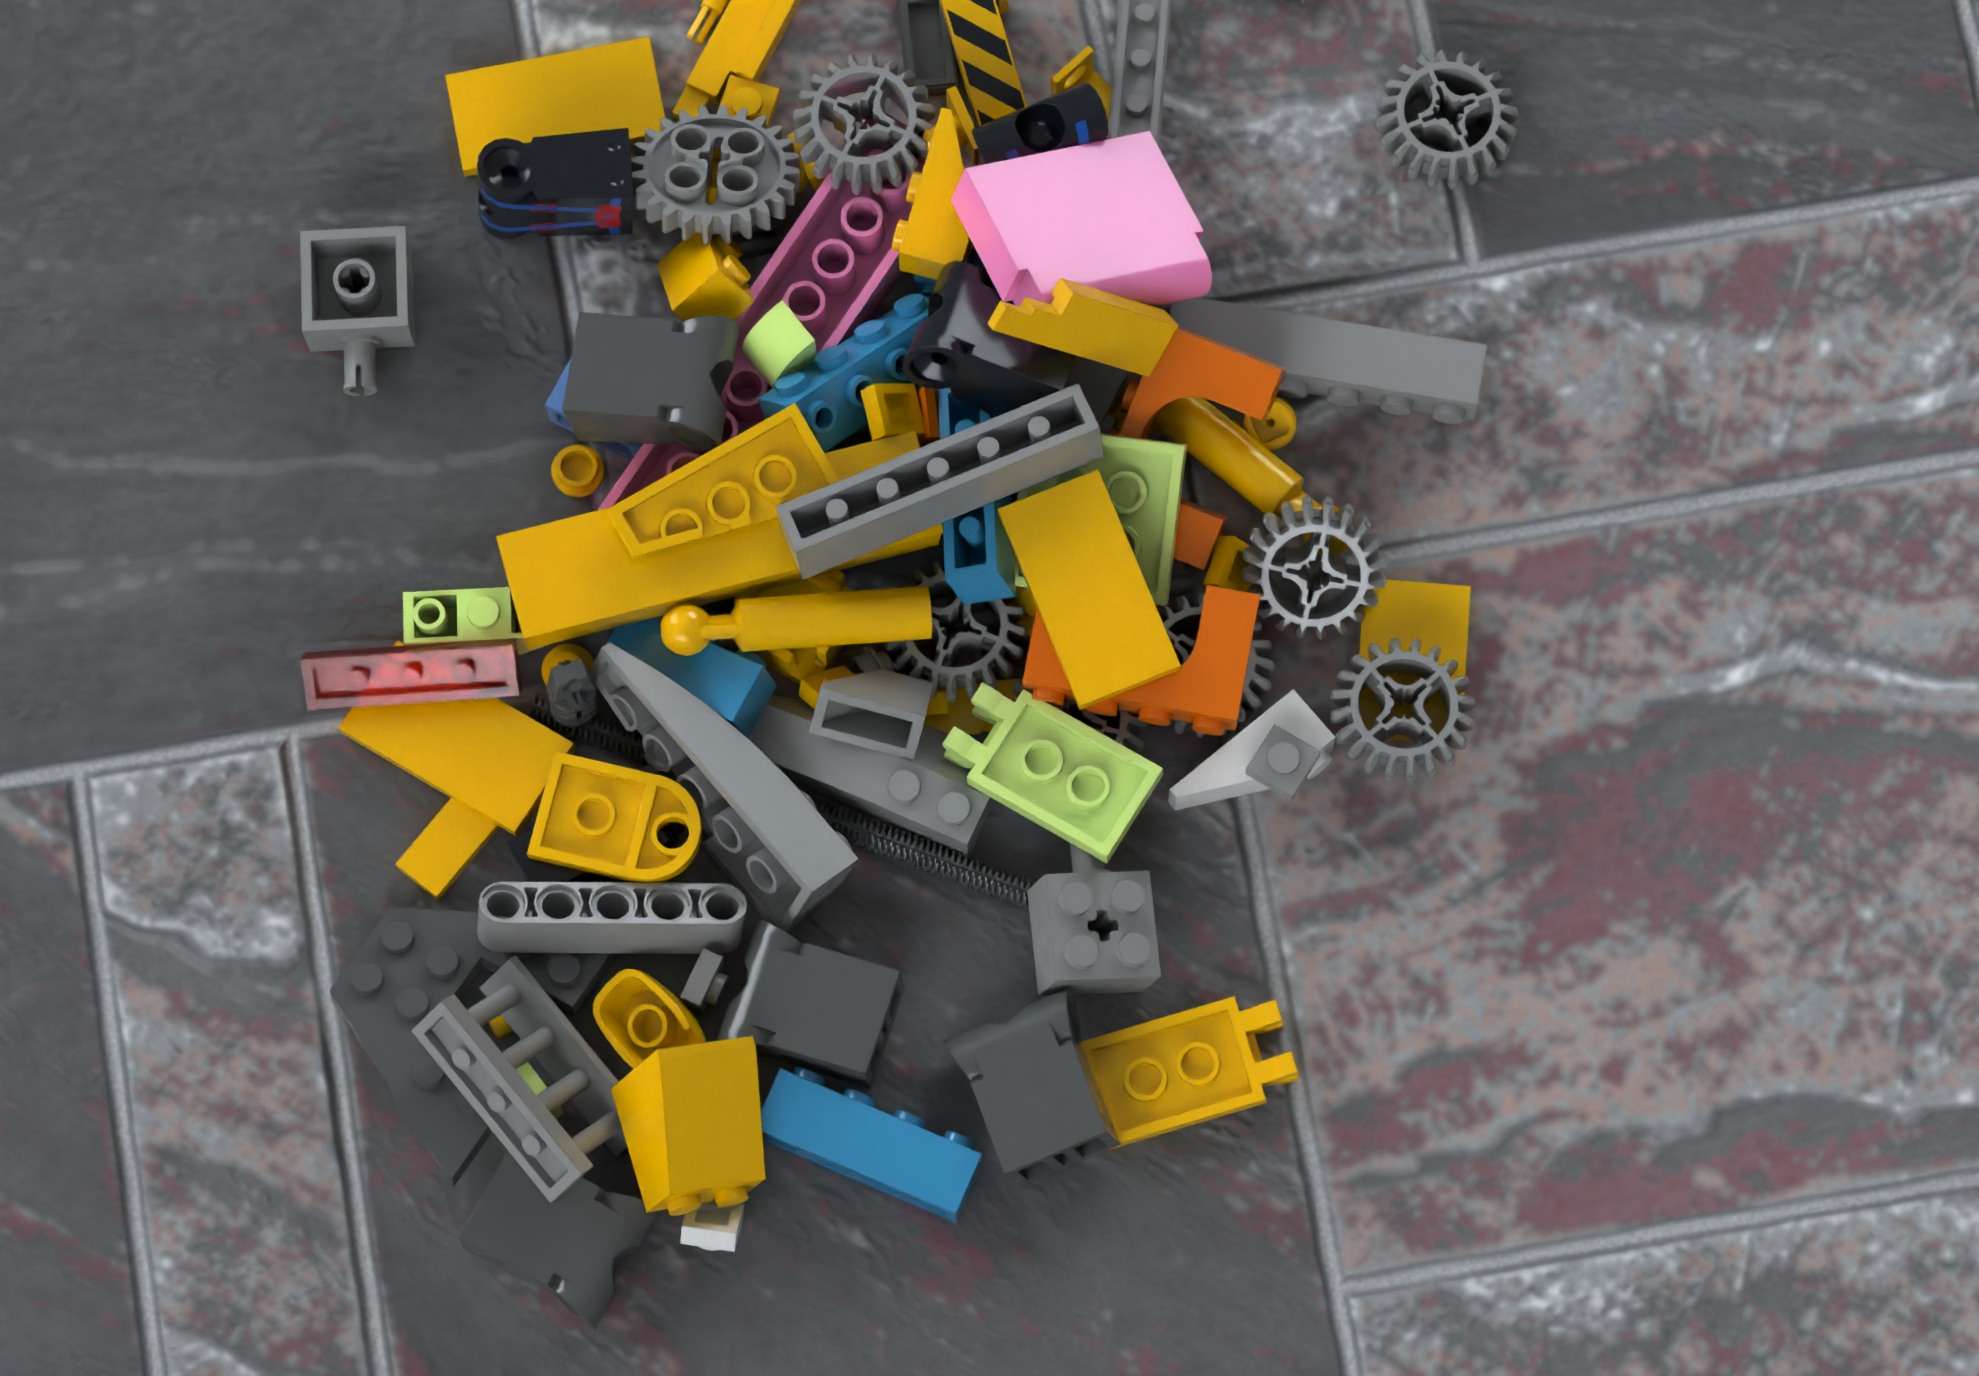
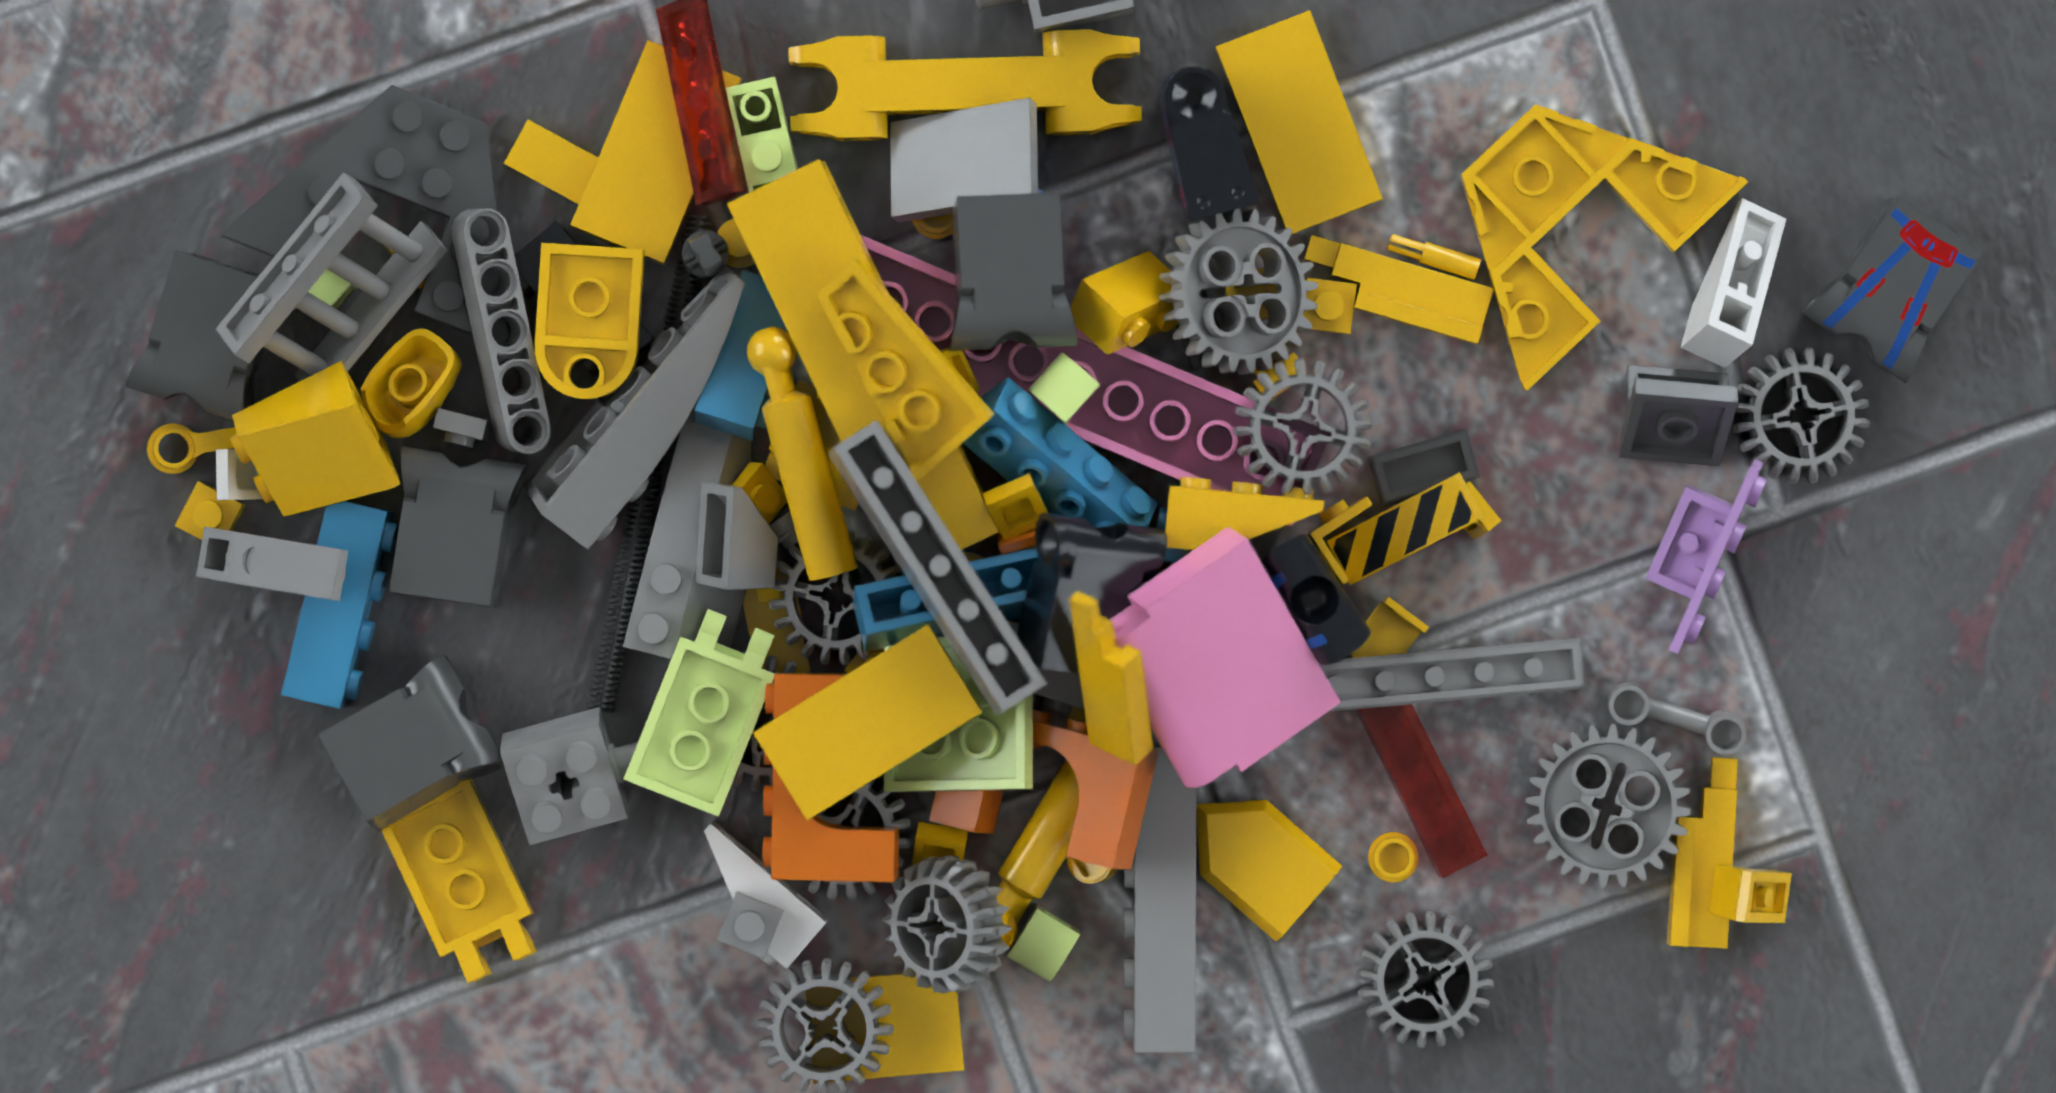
camera: 80 degrees right, 15 degrees up
(466, 329) = (880, 87): none -> yellow piece
(520, 429) = (962, 155): none -> light grey tile
(670, 1270) = (196, 442): none -> yellow piece
(750, 1271) = (206, 511): none -> yellow plate
(813, 1192) = (272, 563): none -> light grey slope
(1251, 92) = (1423, 787): none -> clear red plate
(1306, 258) = (1261, 862): none -> yellow tile
(1318, 134) = (1393, 857): none -> yellow plate
(1352, 479) = (1044, 943): none -> yellowish green brick

